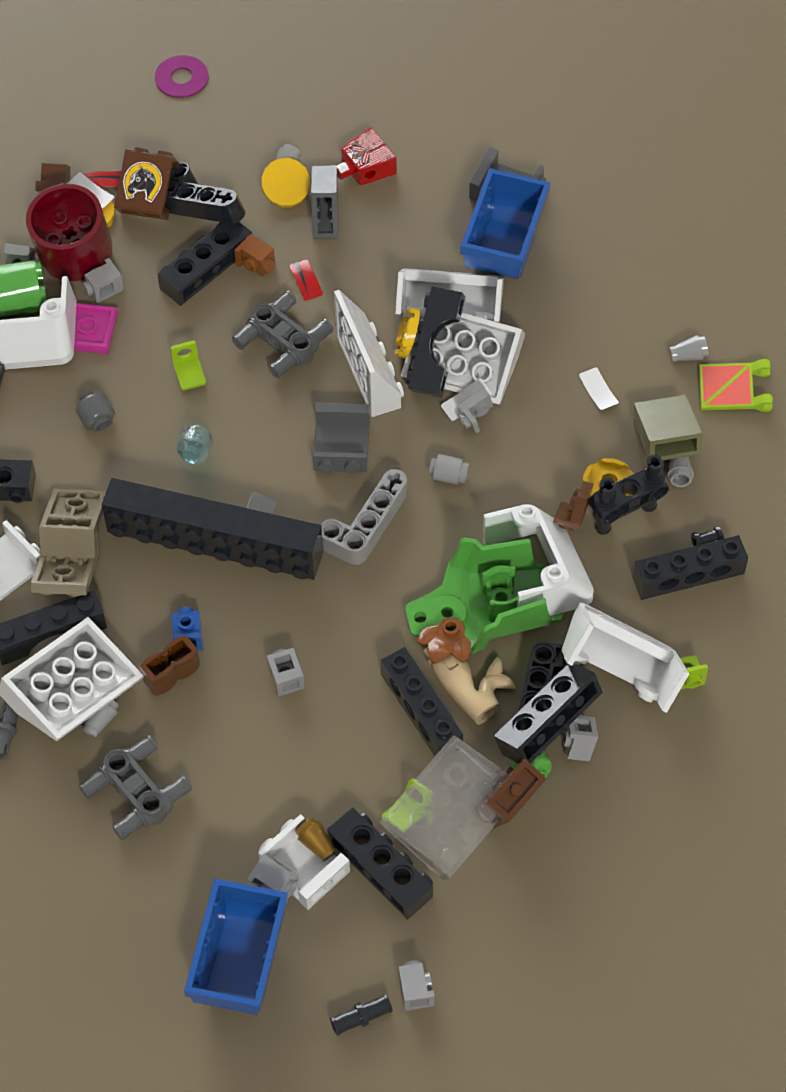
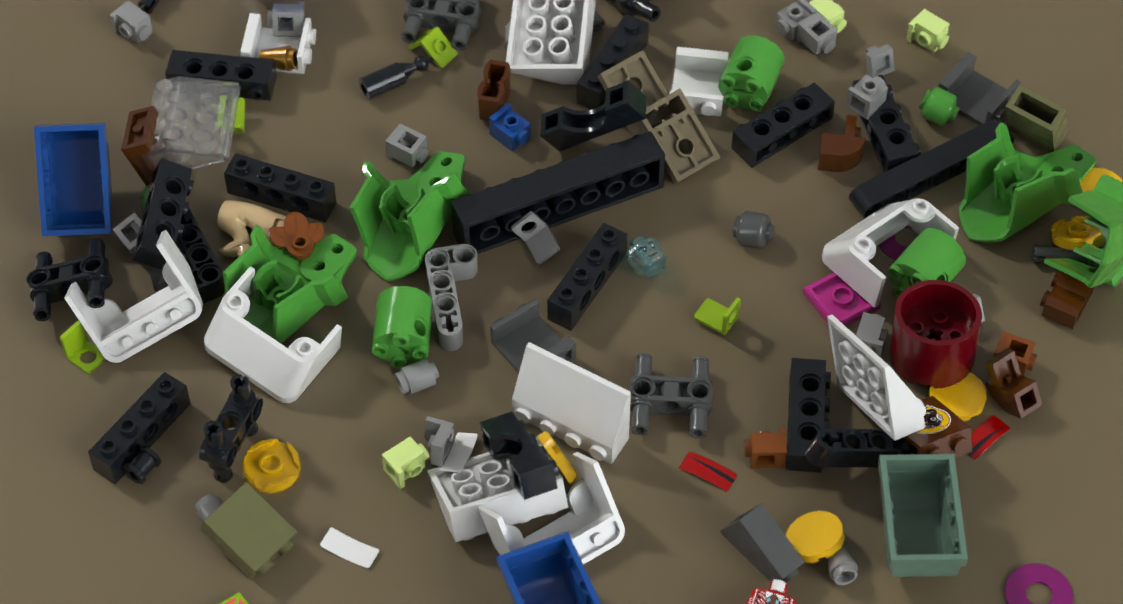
camera: 140 degrees right, 5 degrees down
(20, 199) = (1022, 347): none -> dark orange brick
(103, 196) = (976, 406): white sticker -> none
(110, 536) = (571, 127): none -> black arch
(153, 218) = (874, 384): none -> white slope
(172, 756) = (436, 46): none -> lime bracket
(219, 126) = (922, 515): none -> sand green container
(234, 753) = (391, 77): none -> black wheel
(253, 457) = (587, 276): none -> black brick
(329, 599) = (406, 215): none -> bright green piece
(430, 503) = (402, 325): none -> bright green cylinder
(511, 413) = (404, 461): none -> yellowish green brick
(571, 514) = (277, 400): reddish brown bracket -> none
(594, 804) = (73, 179): none -> blue container
(660, 733) = (51, 282): none -> black piece

